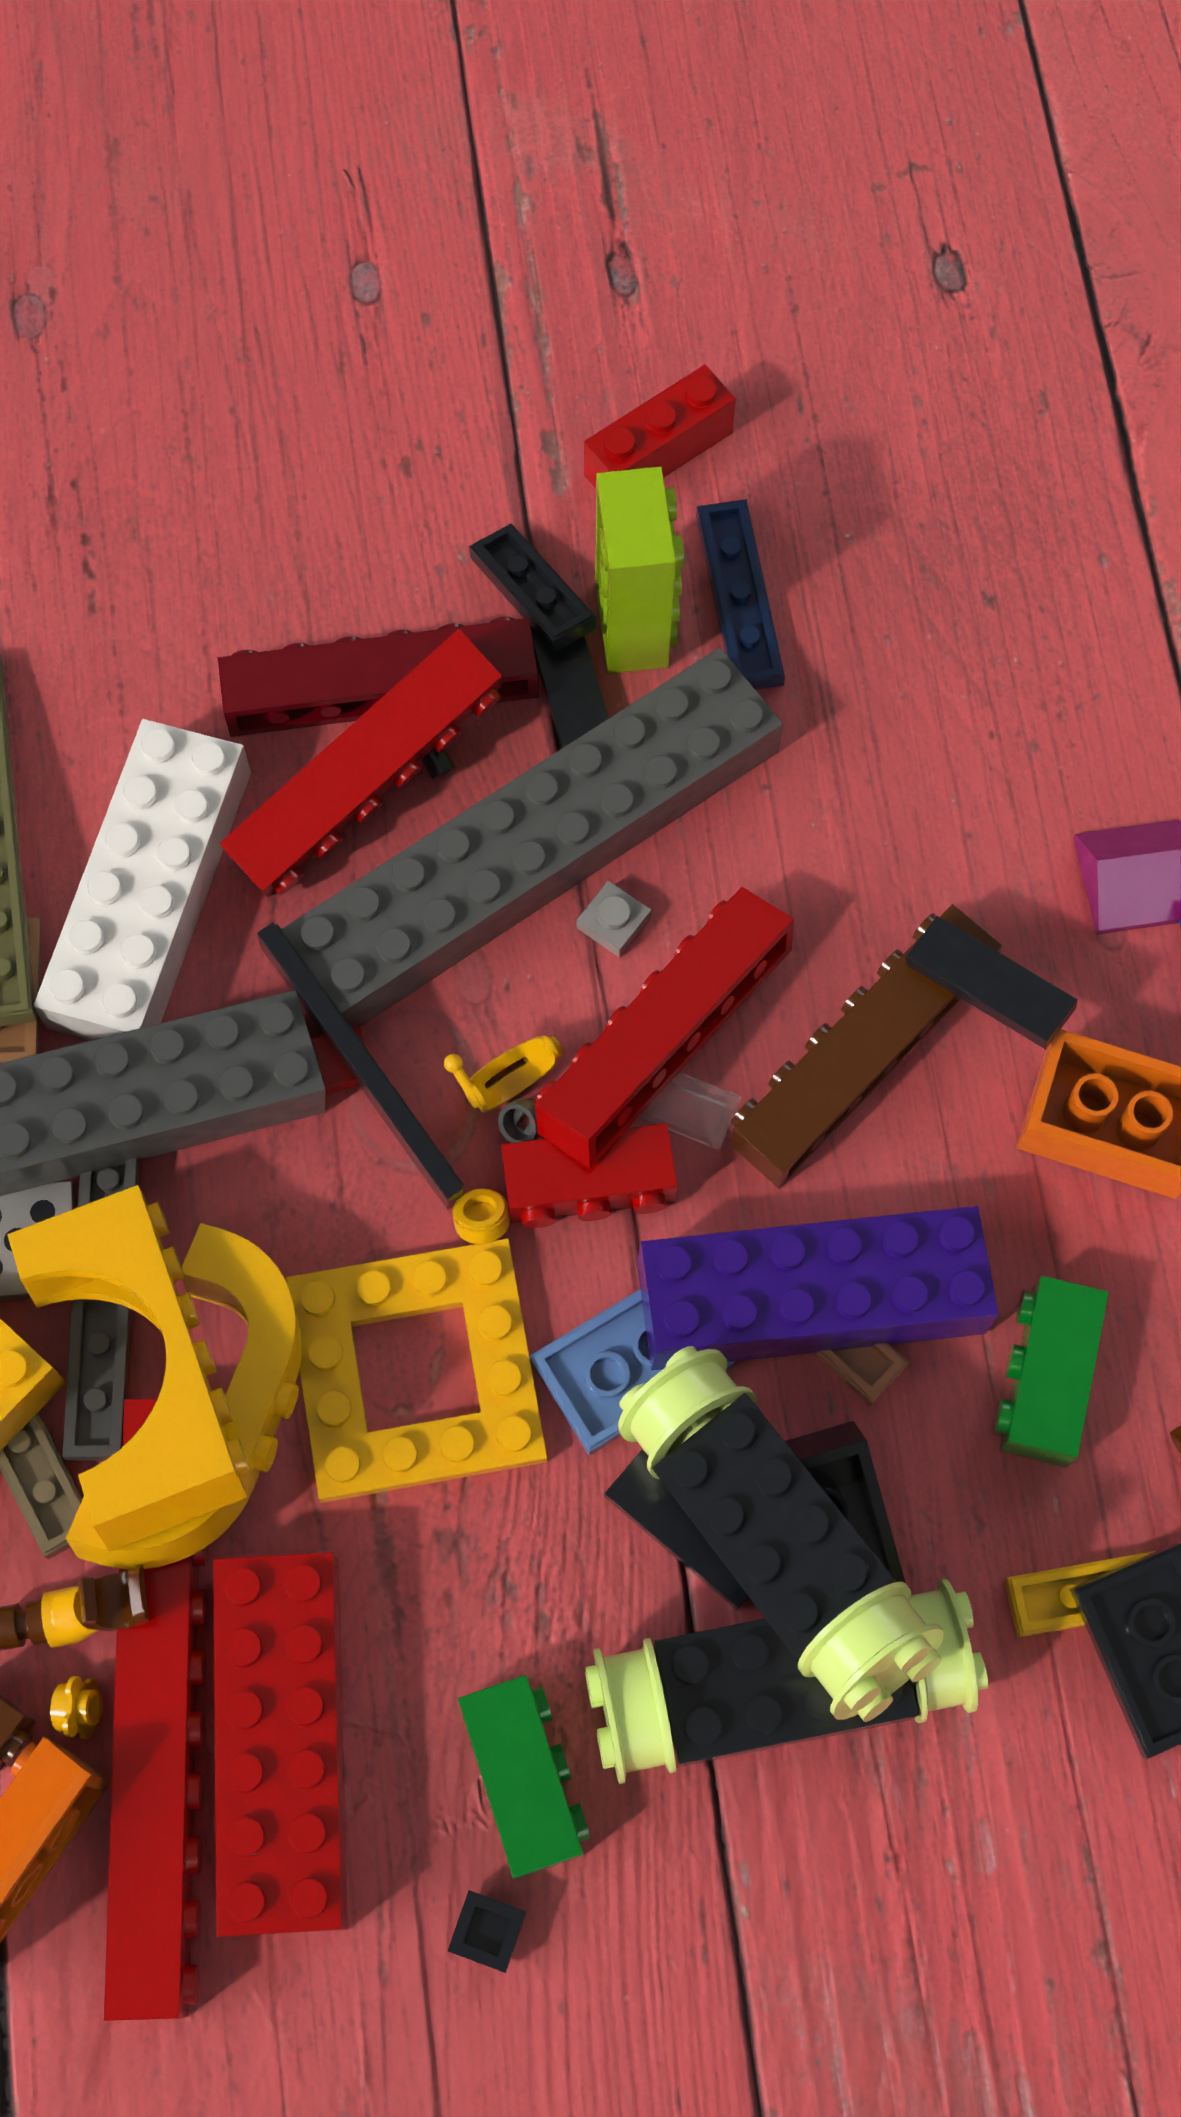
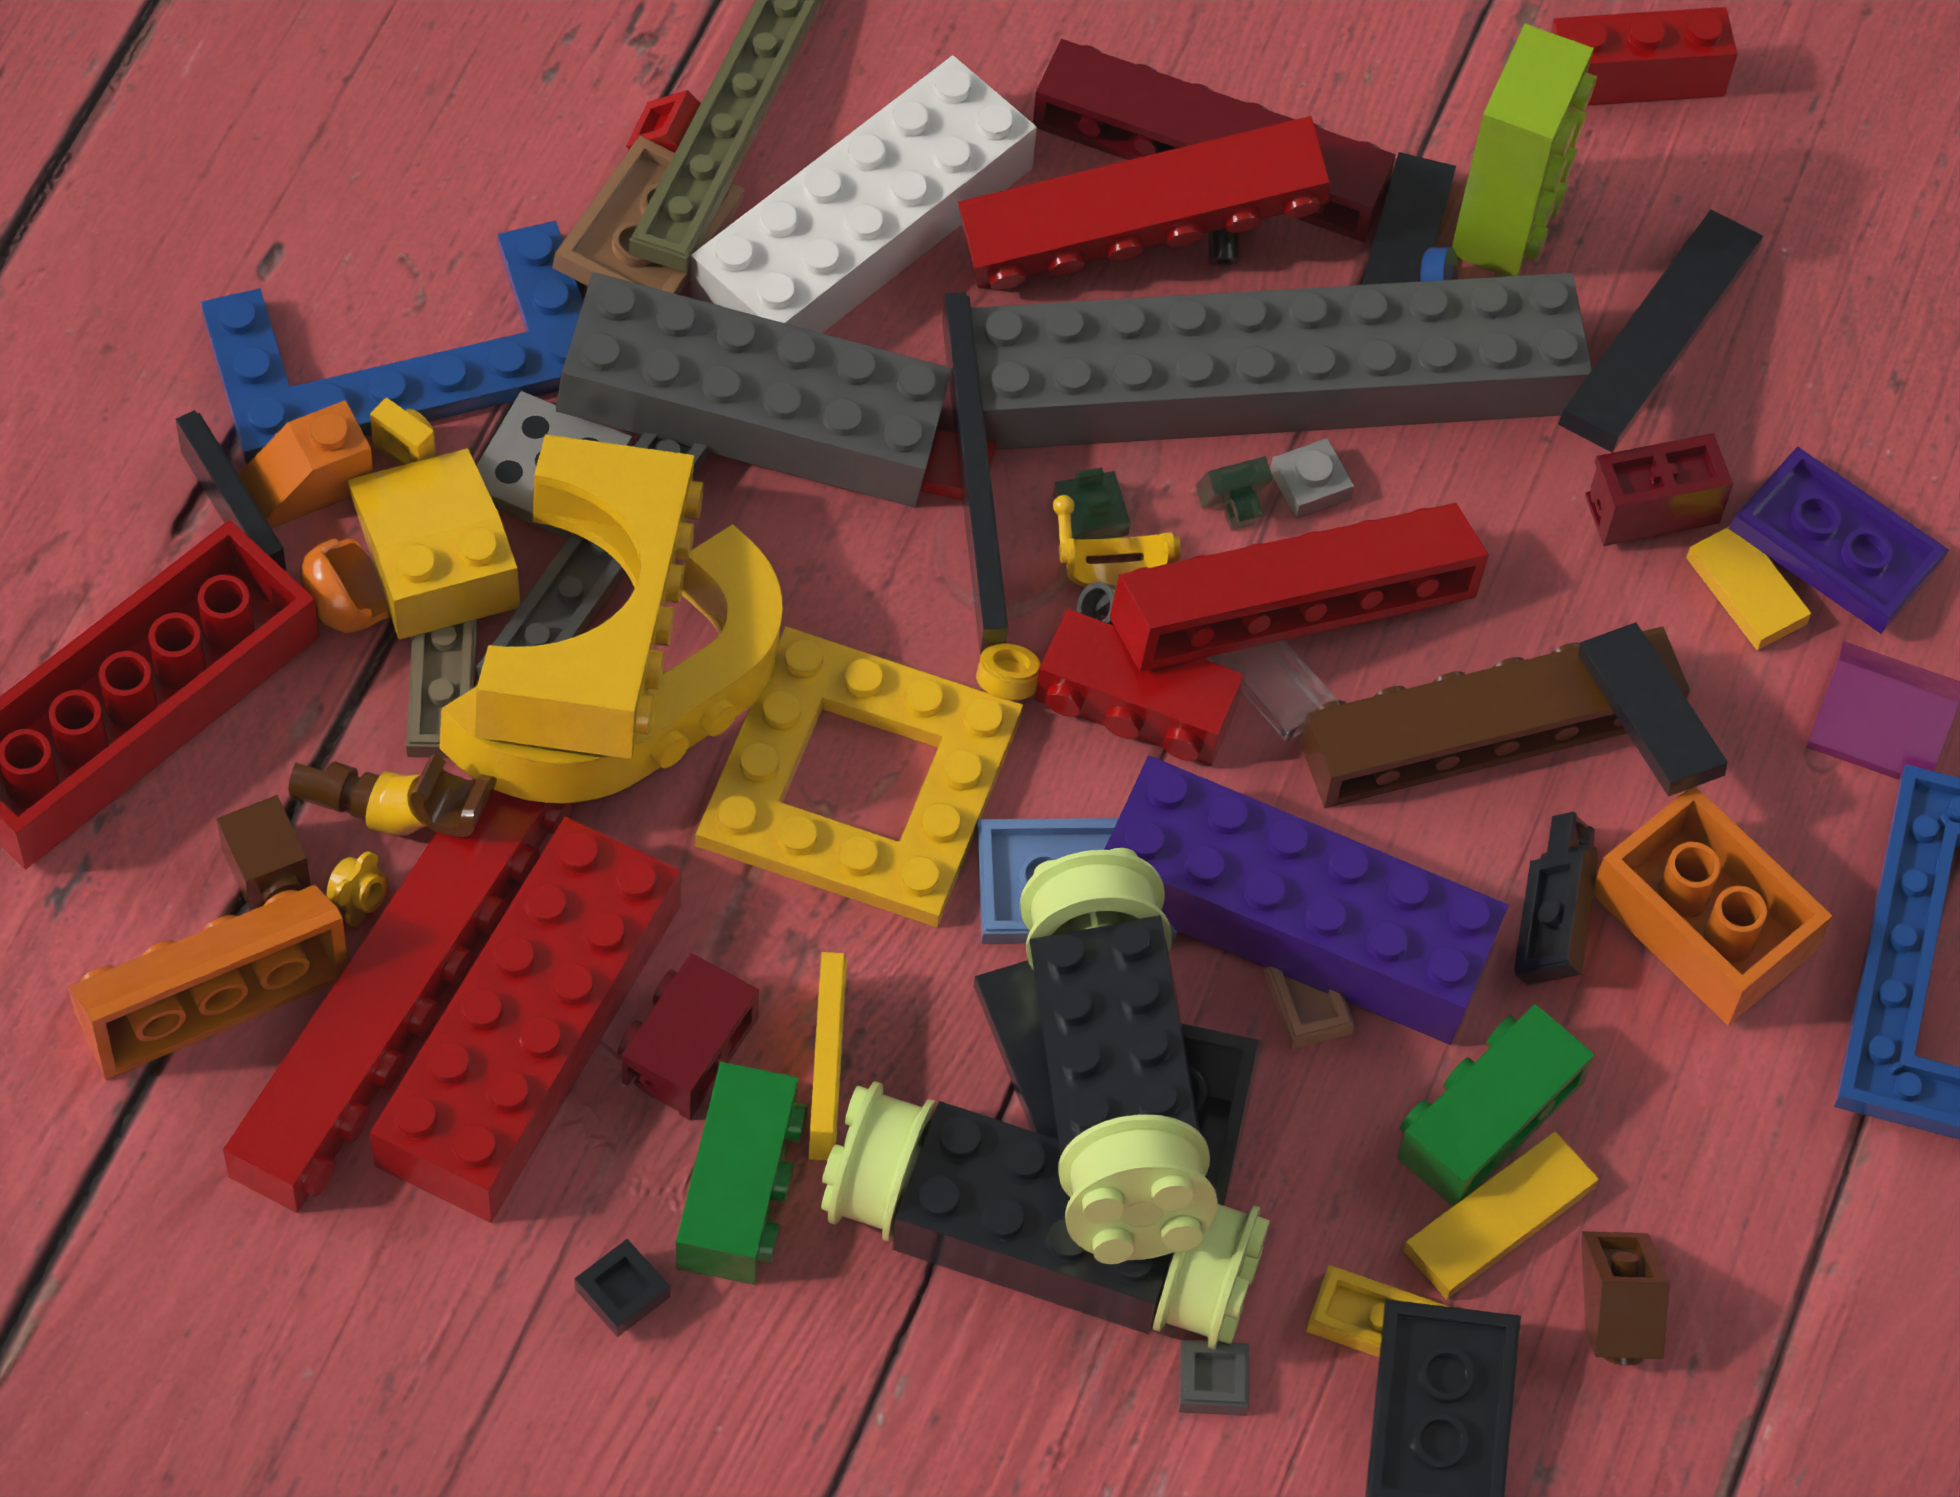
camera: 25 degrees right, 10 degrees down
(413, 1679) = (693, 1027): none -> dark red hinge
(464, 1034) = (1098, 505): none -> clear green tile
(532, 1632) = (827, 1055): none -> yellow tile
(533, 587) = (1420, 134): black tile -> none
(566, 964) = (1237, 490): none -> tile
(612, 694) = (1439, 264): none -> blue tile
(740, 592) = (1634, 242): dark blue tile -> none
(808, 659) = (1660, 331): none -> black tile
(881, 789) = (1659, 489): none -> dark red hinge
(976, 1731) = (1214, 1379): none -> dark grey tile
(982, 827) = (1748, 587): none -> yellow tile
(1001, 1173) = (1558, 904): none -> black hinge
(1027, 754) = (1839, 539): none -> dark purple tile
(1105, 1456) = (1500, 1215): none -> yellow tile

